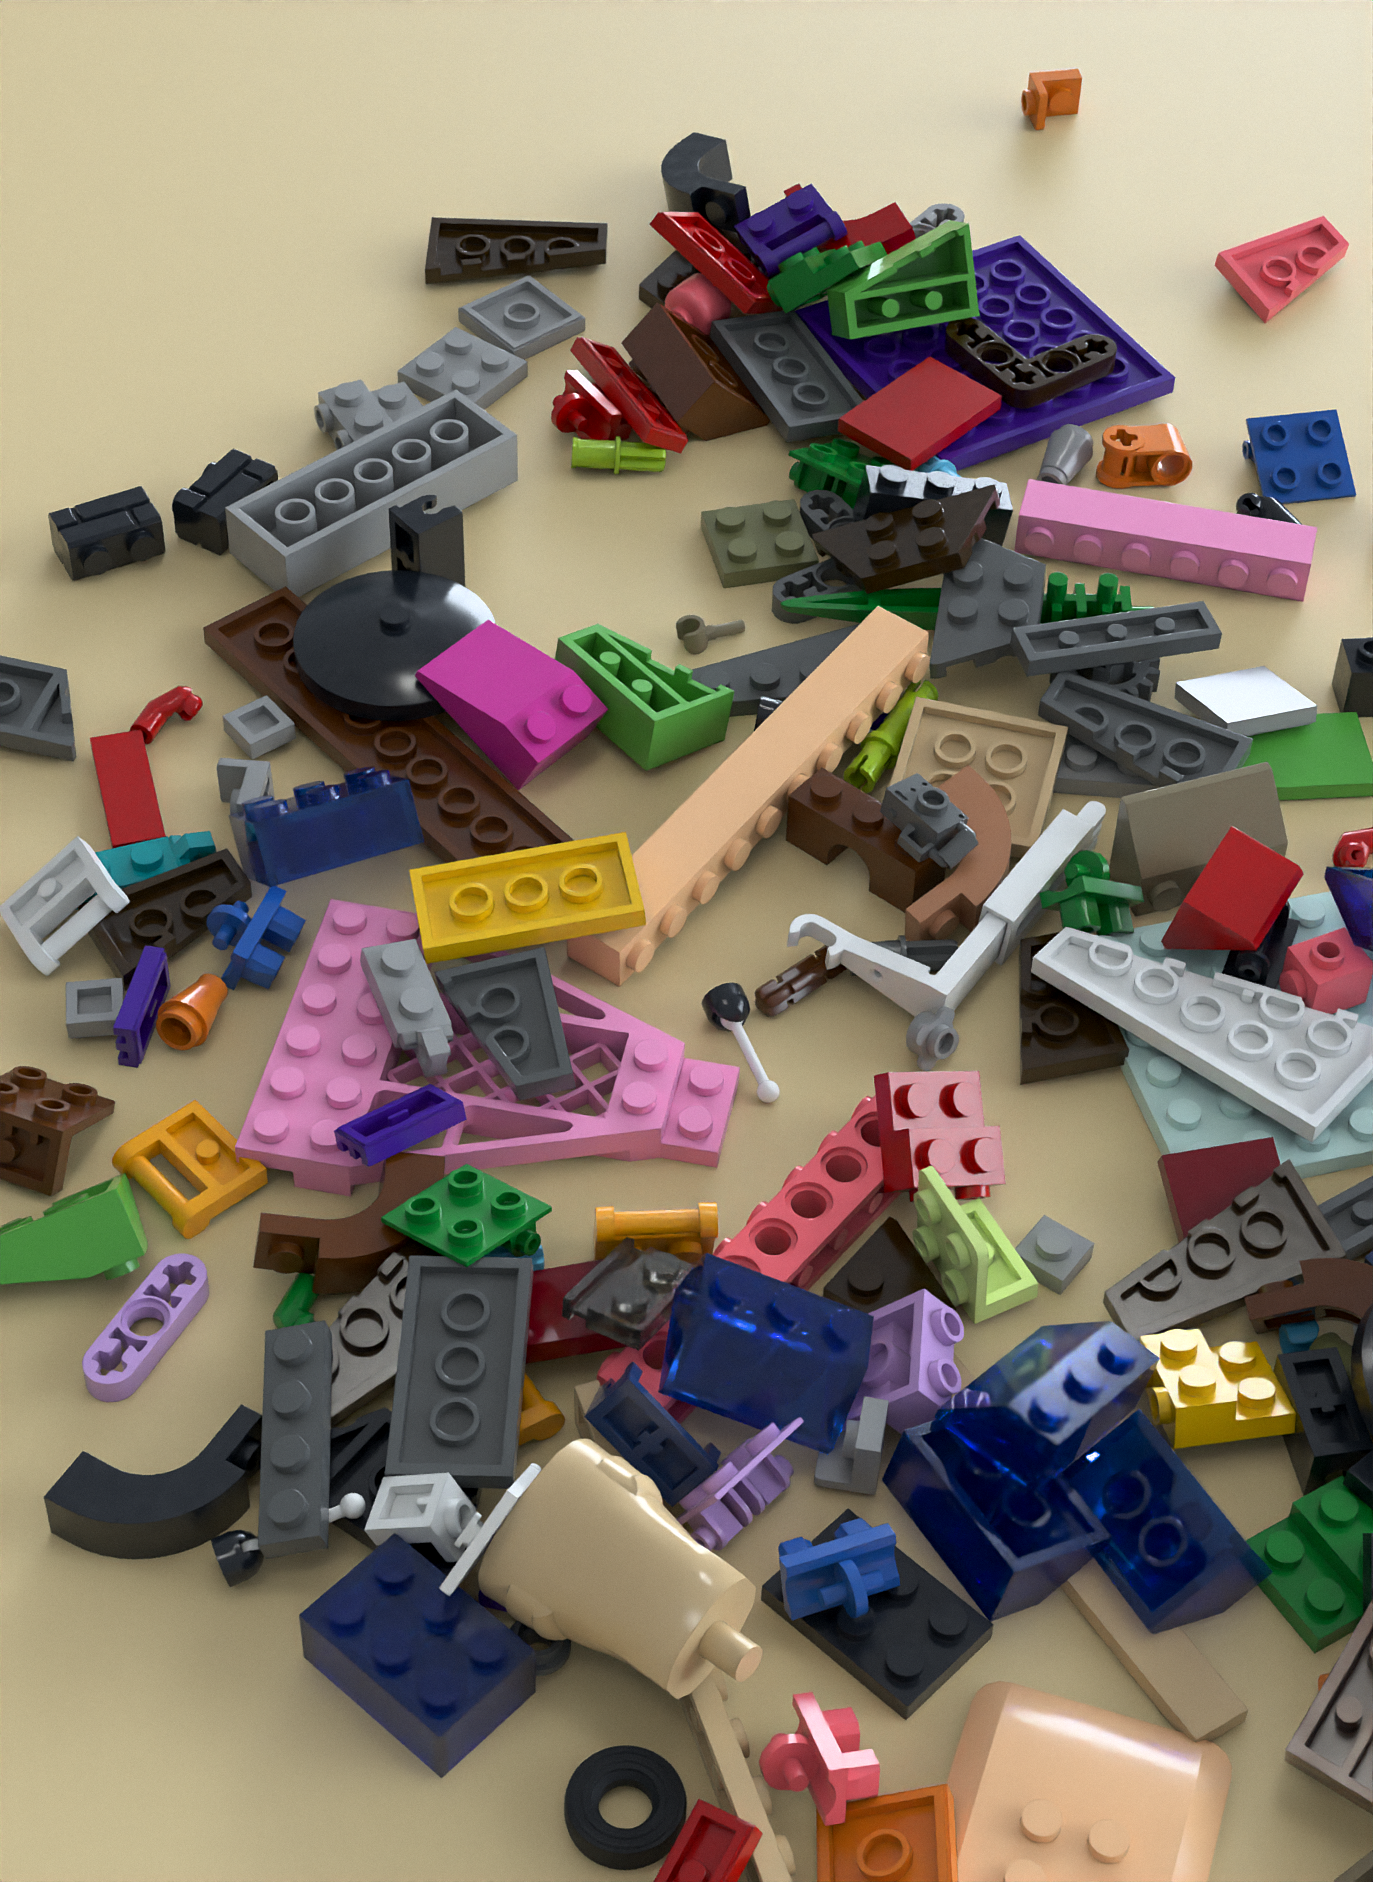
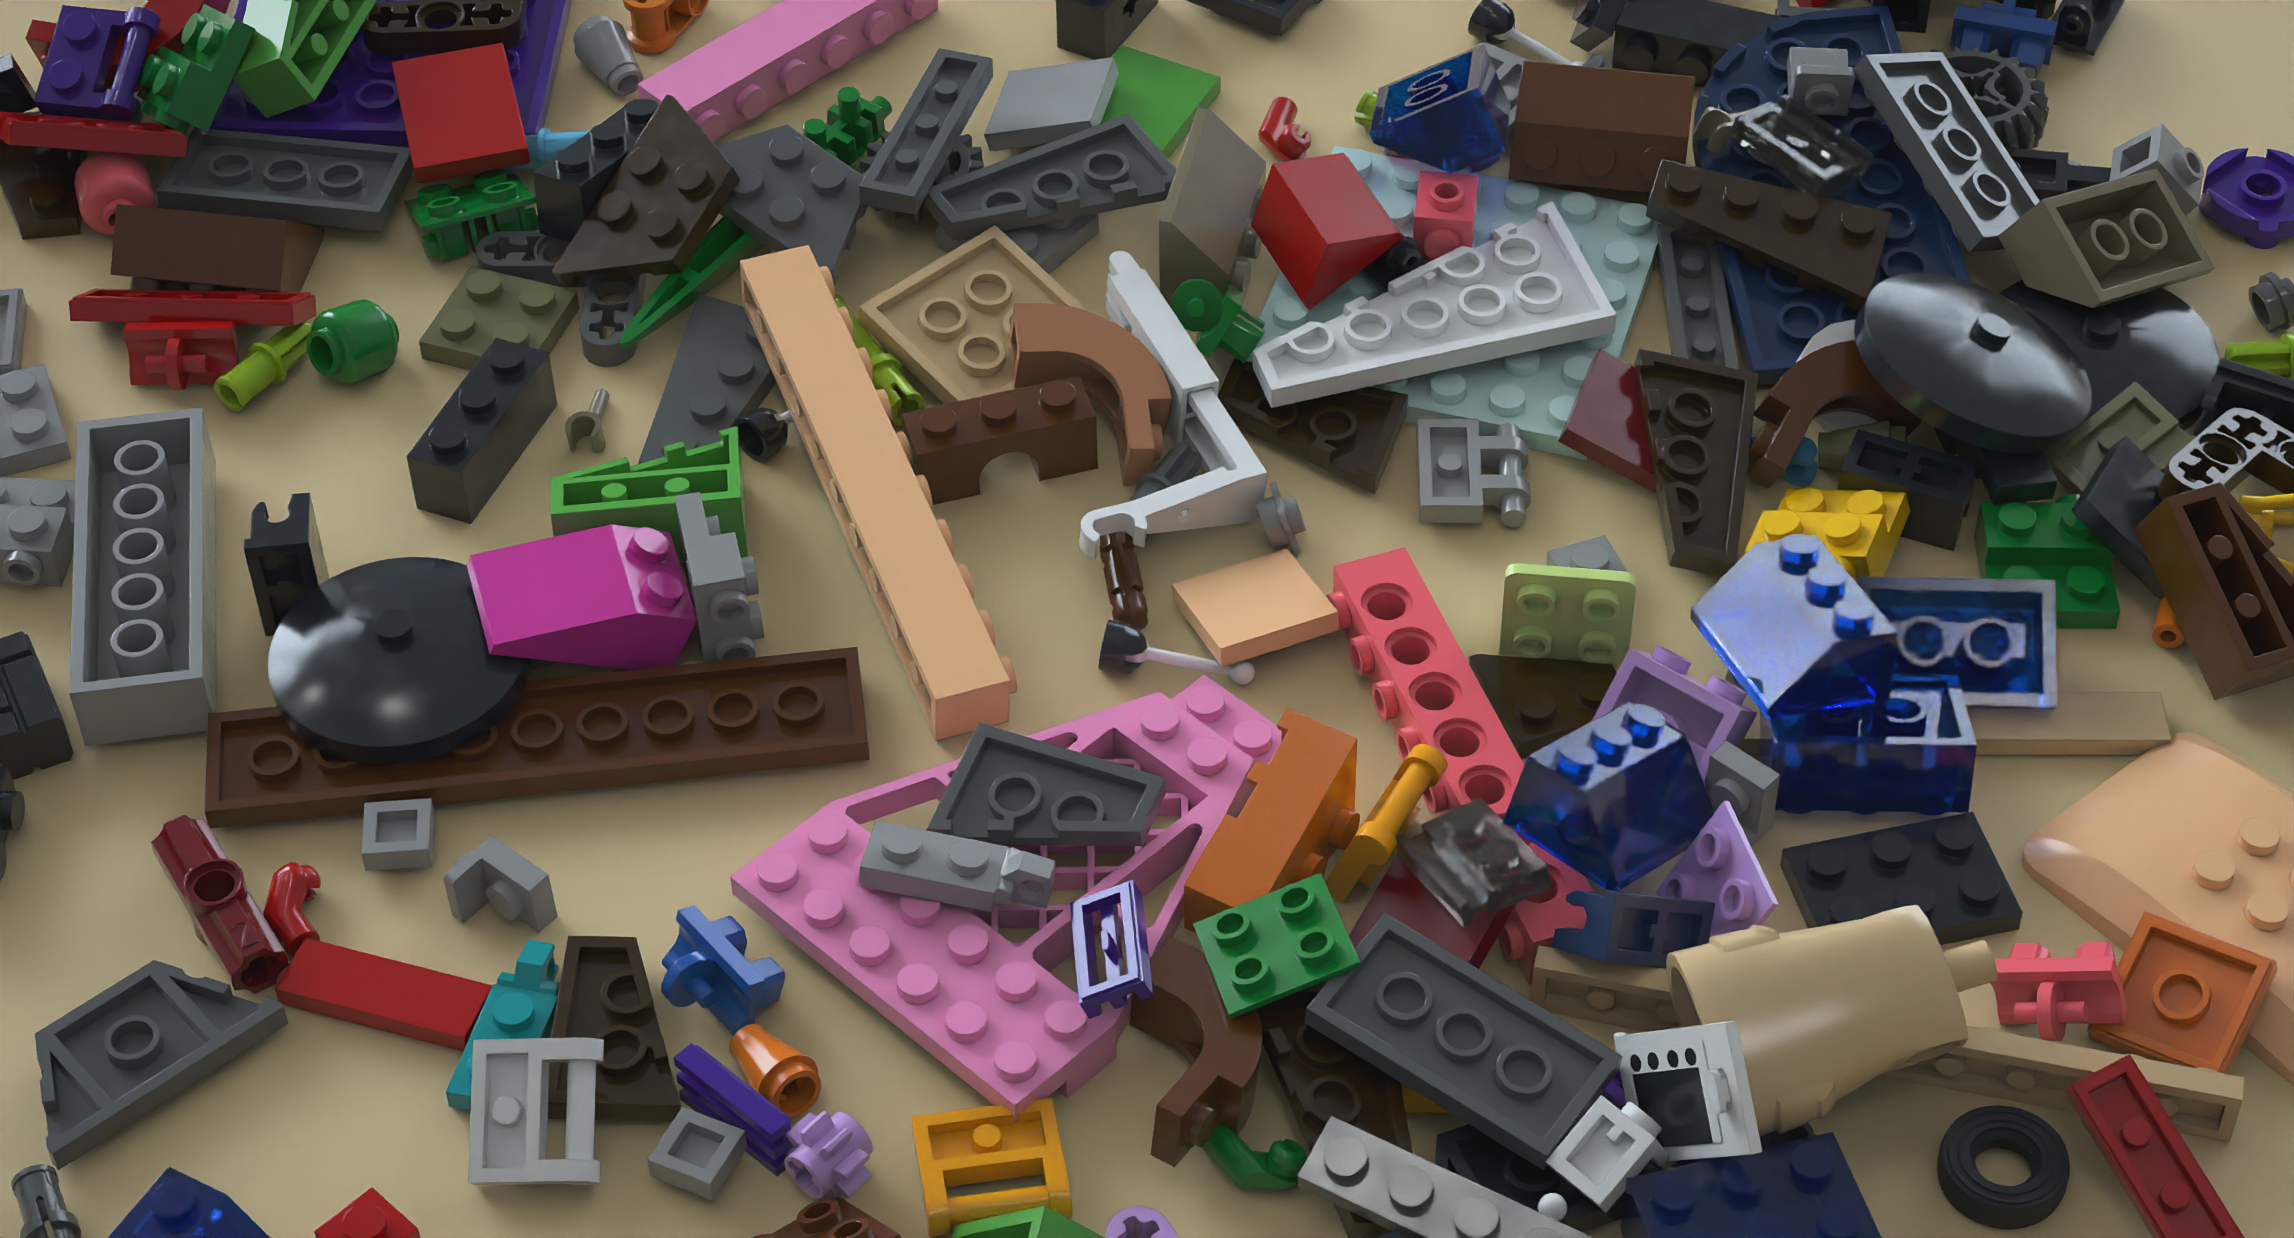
camera: 55 degrees left, 0 degrees up
(132, 1072) = (828, 1155): none -> lavender gear
(136, 674) = (220, 904): none -> dark red piece
(325, 826) = (639, 829): clear blue brick -> none
(527, 897) = (892, 709): yellow plate -> none
(577, 754) = (718, 584): none -> light grey plate
(613, 1165) = (1288, 824): none -> orange wedge
(640, 579) = (482, 430): none -> black brick
(668, 481) = (353, 342): none -> green head
(827, 1063) = (1255, 607): none -> light nougat tile
(838, 1571) = (1885, 865): blue hips -> none
(928, 822) = (1064, 366): dark grey piece -> none
(938, 1124) = (1447, 570): plate -> none
(1081, 1114) = (1451, 474): none -> light grey plate

